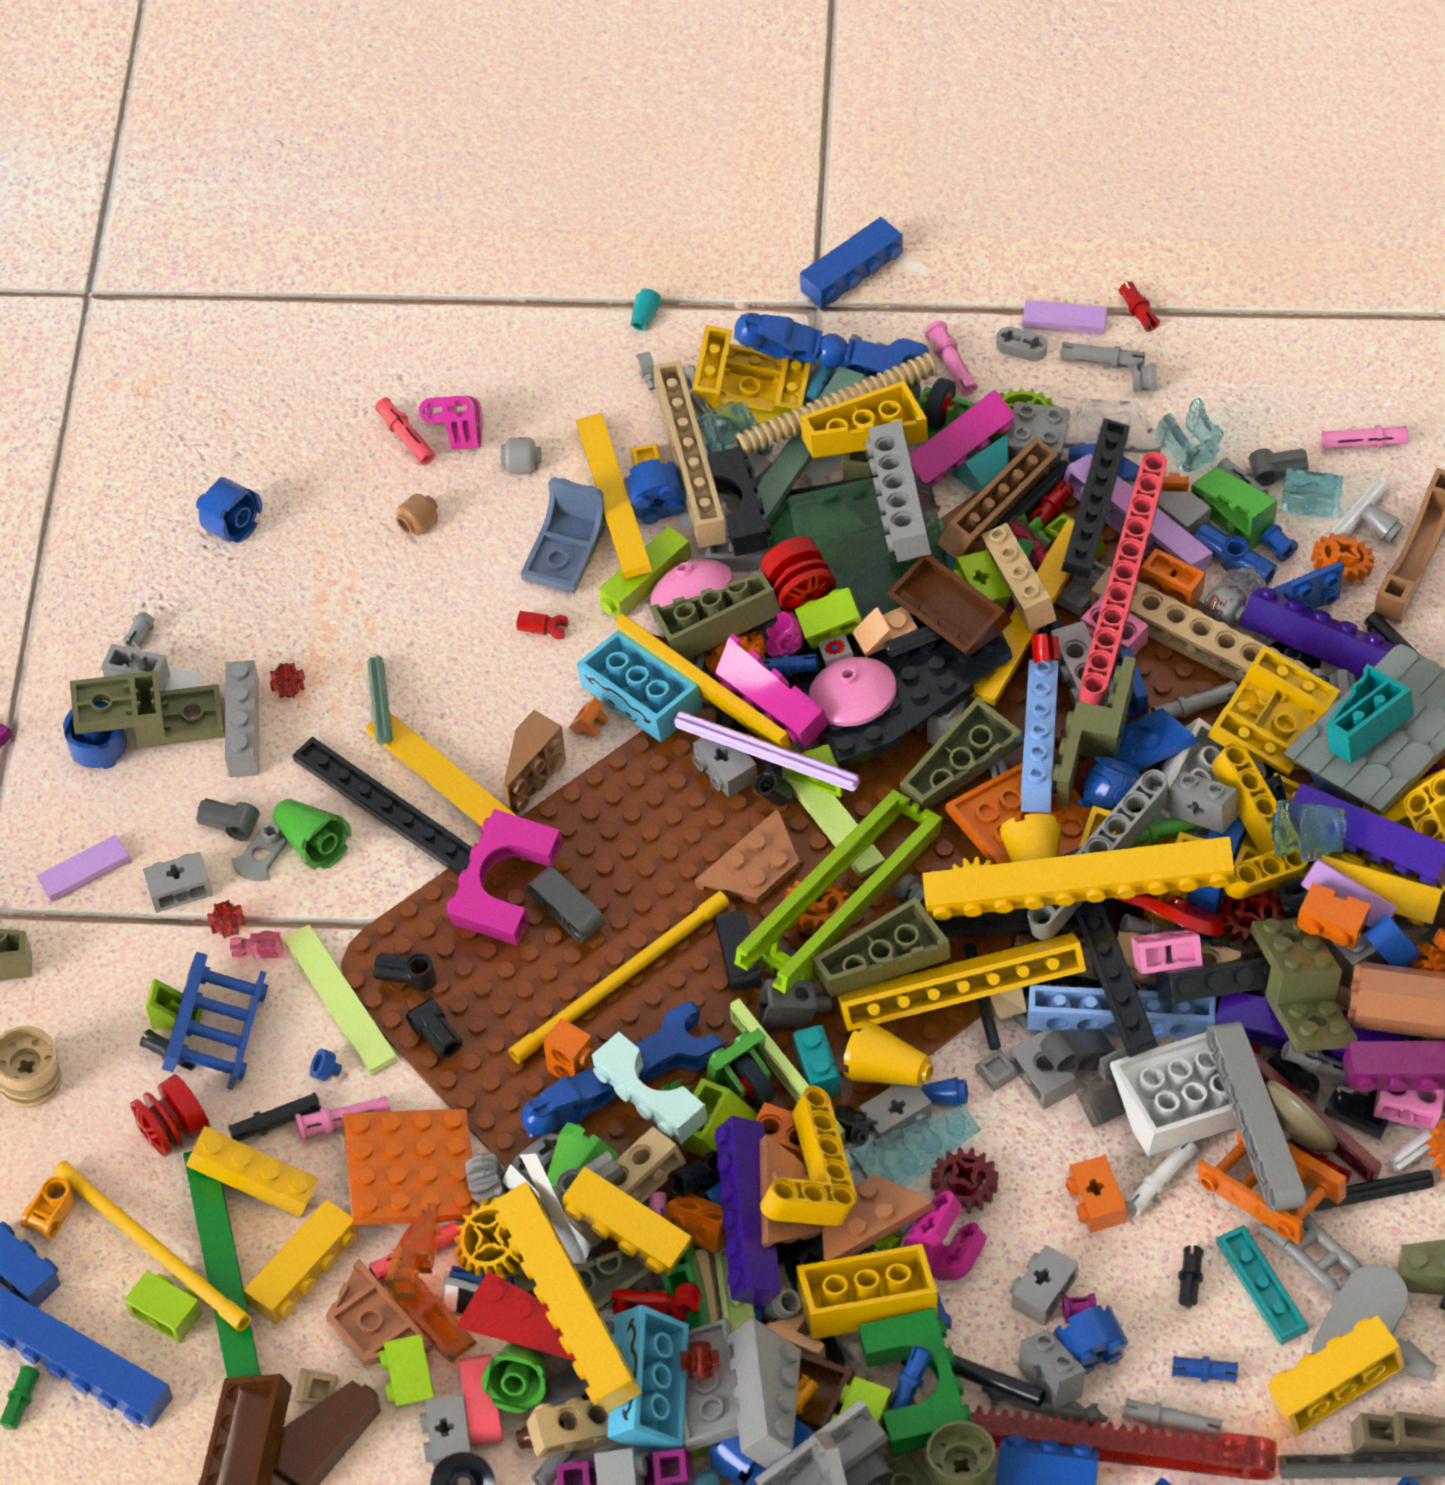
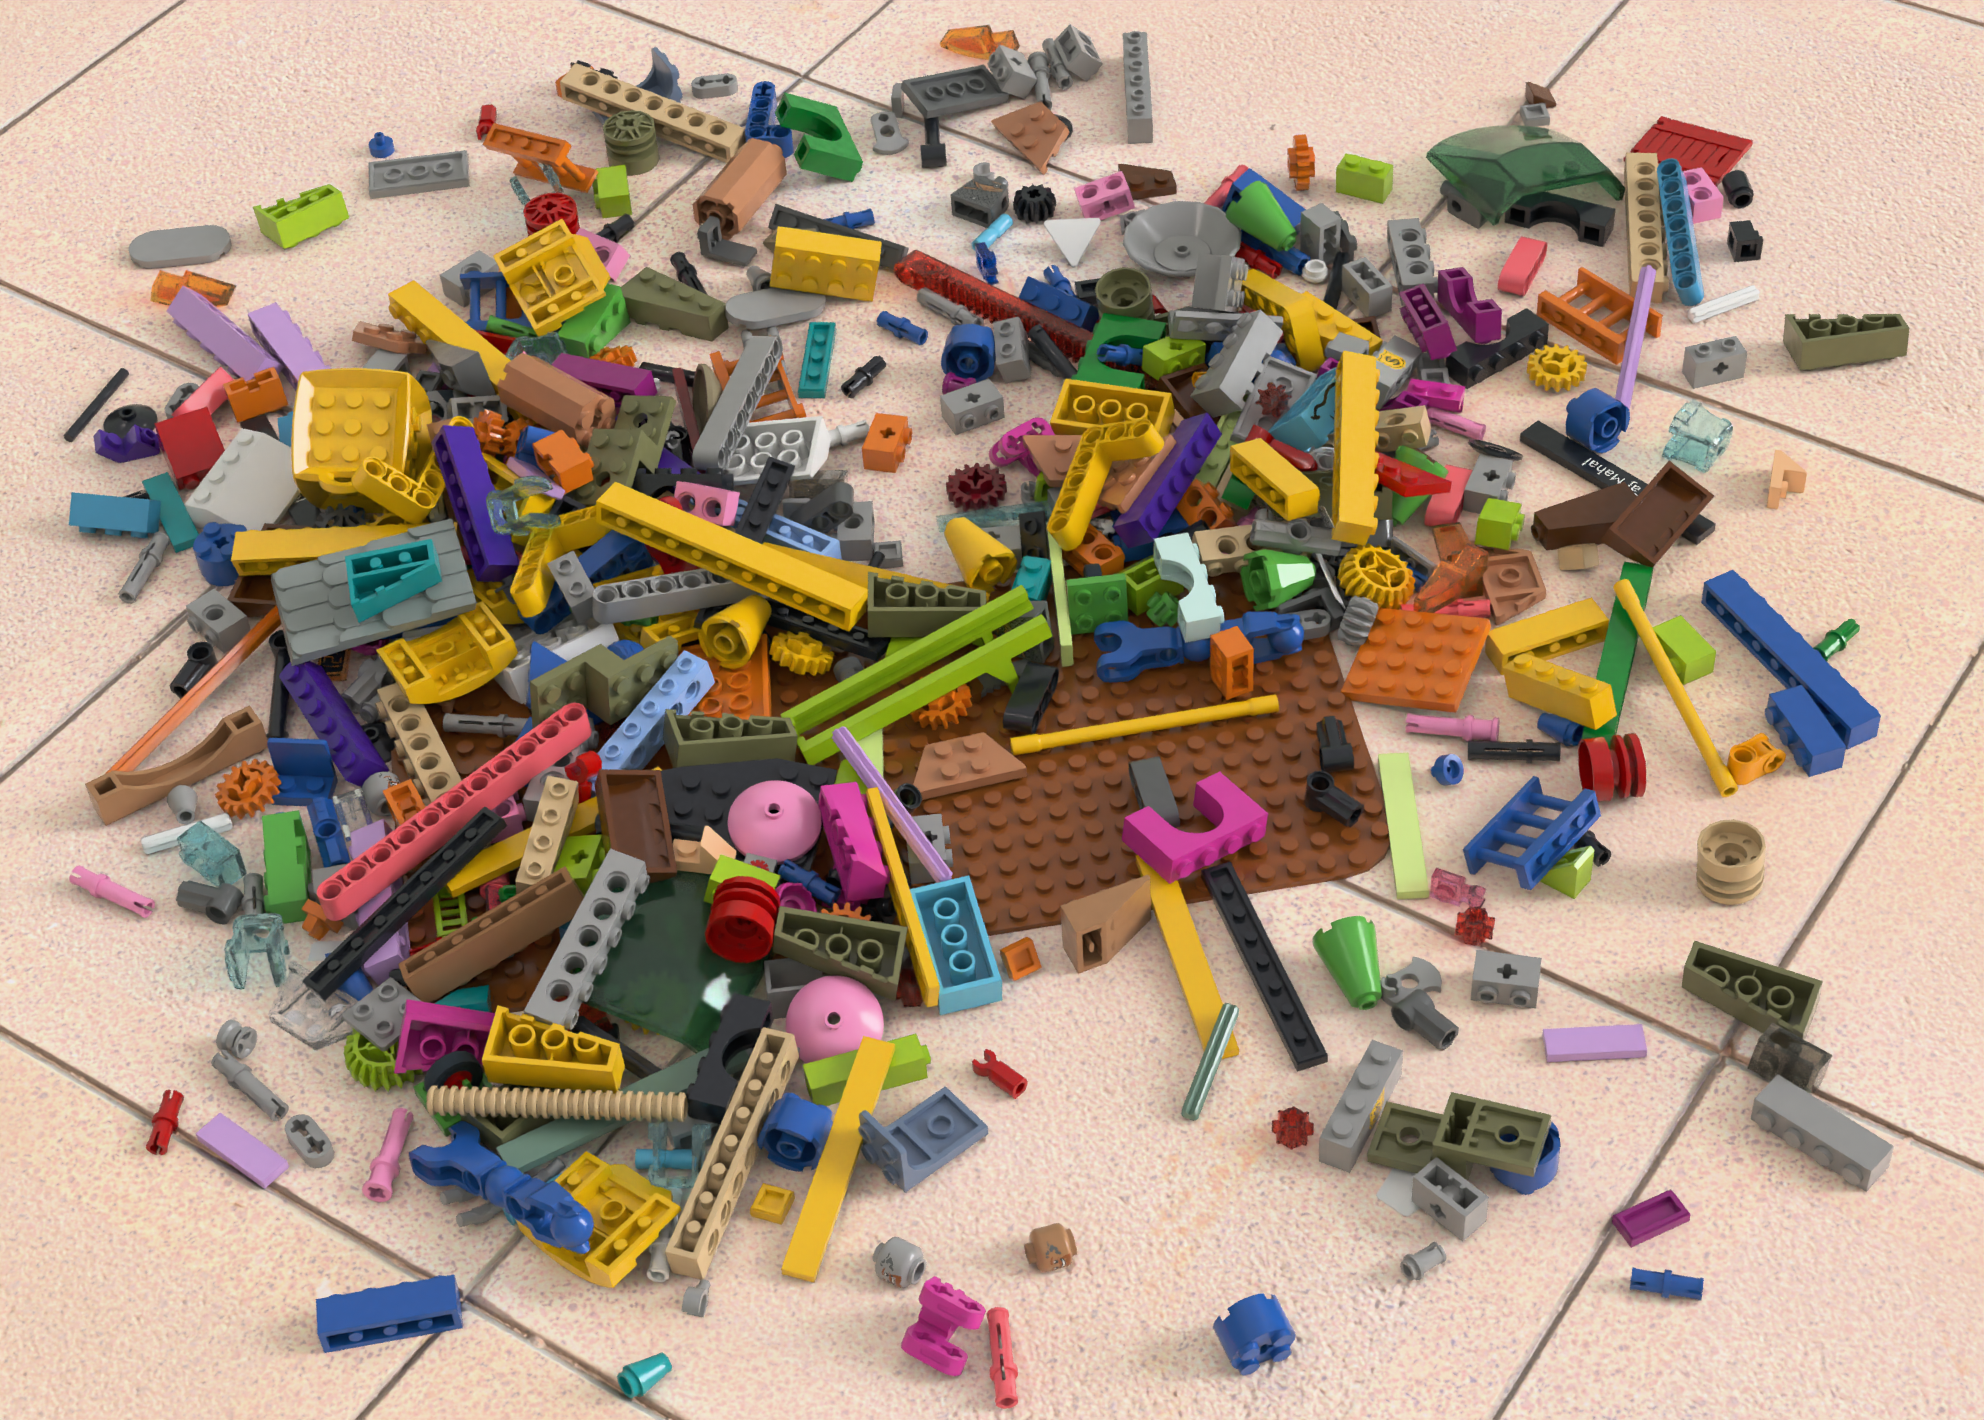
camera: 150 degrees left, 10 degrees down
(947, 1092) = (936, 547): blue cone -> none

